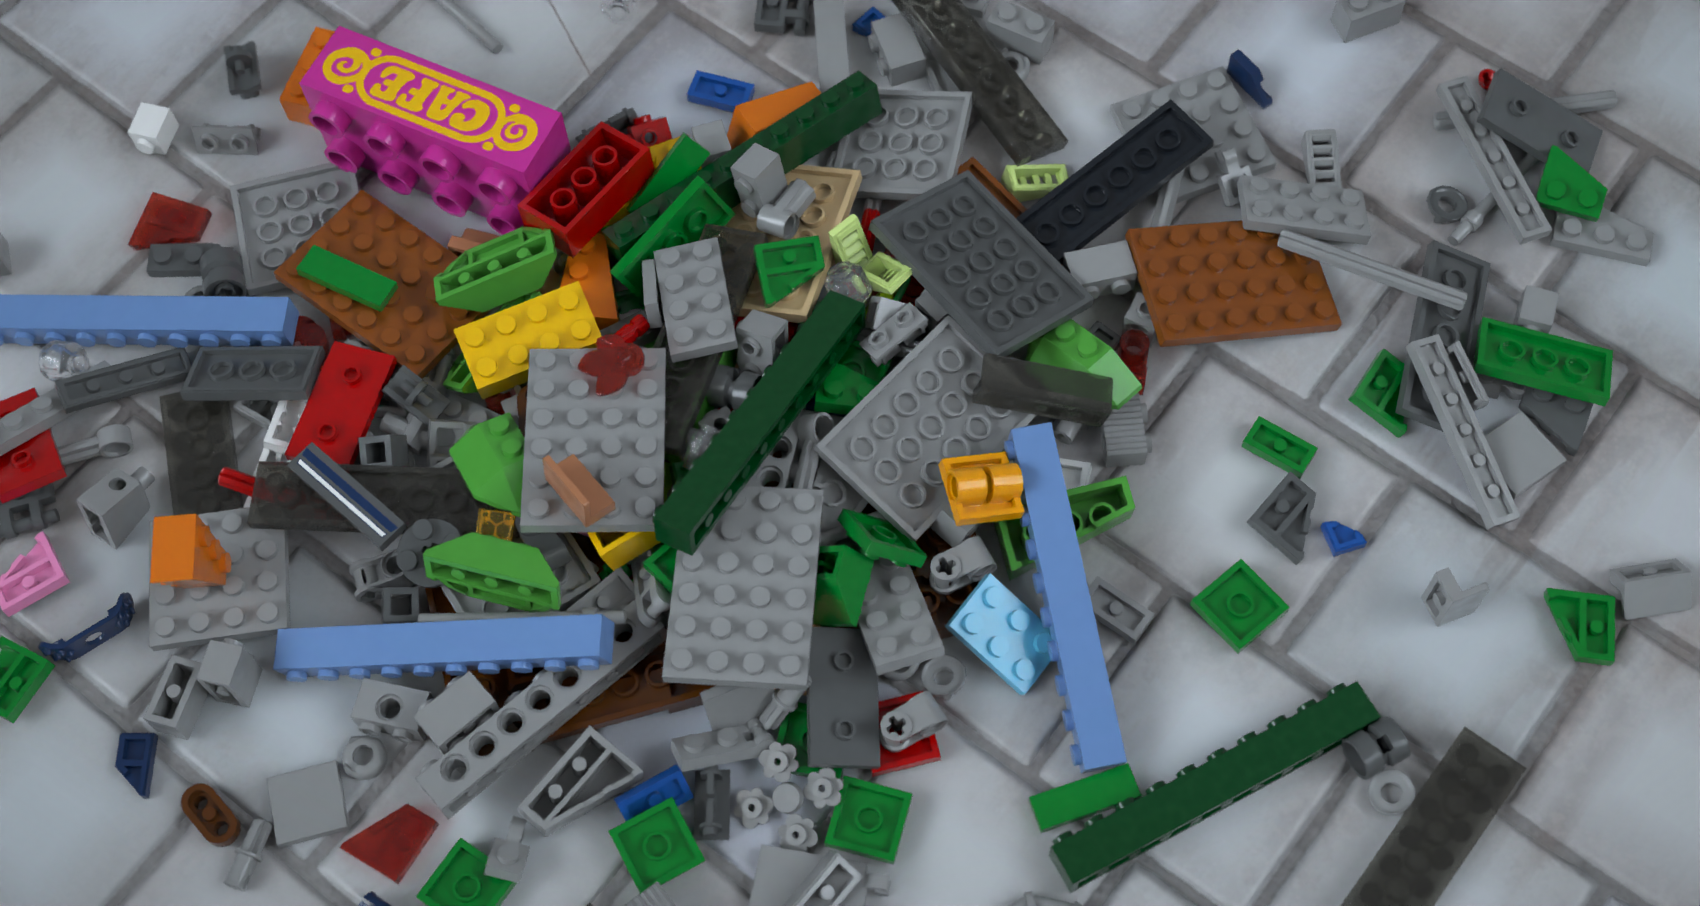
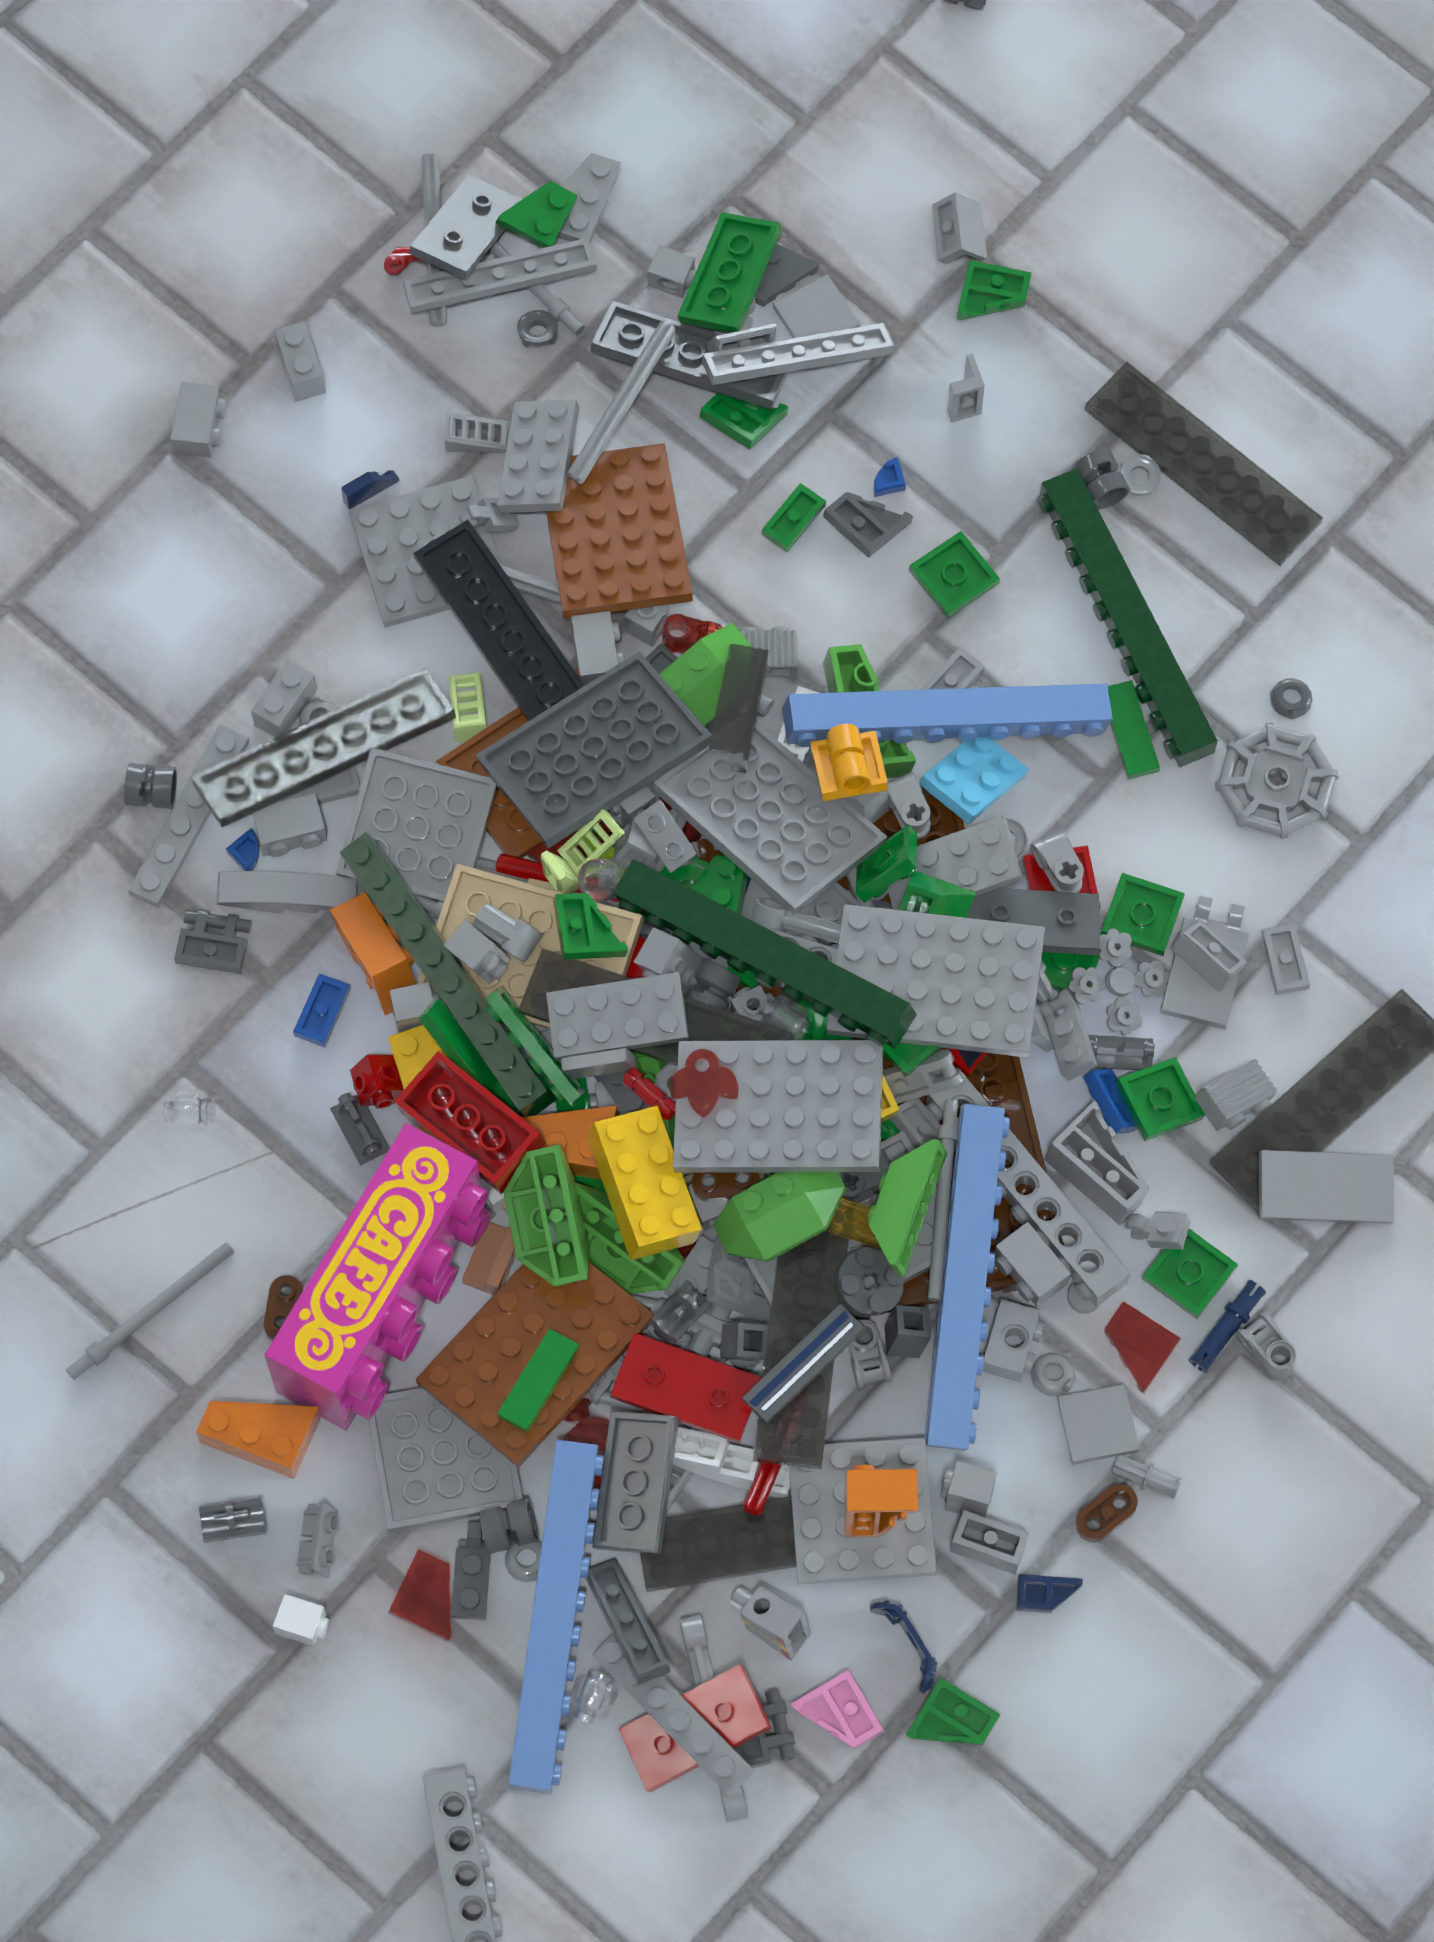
camera: 90 degrees left, 5 degrees up
(578, 489) = (848, 1107): nougat panel -> none

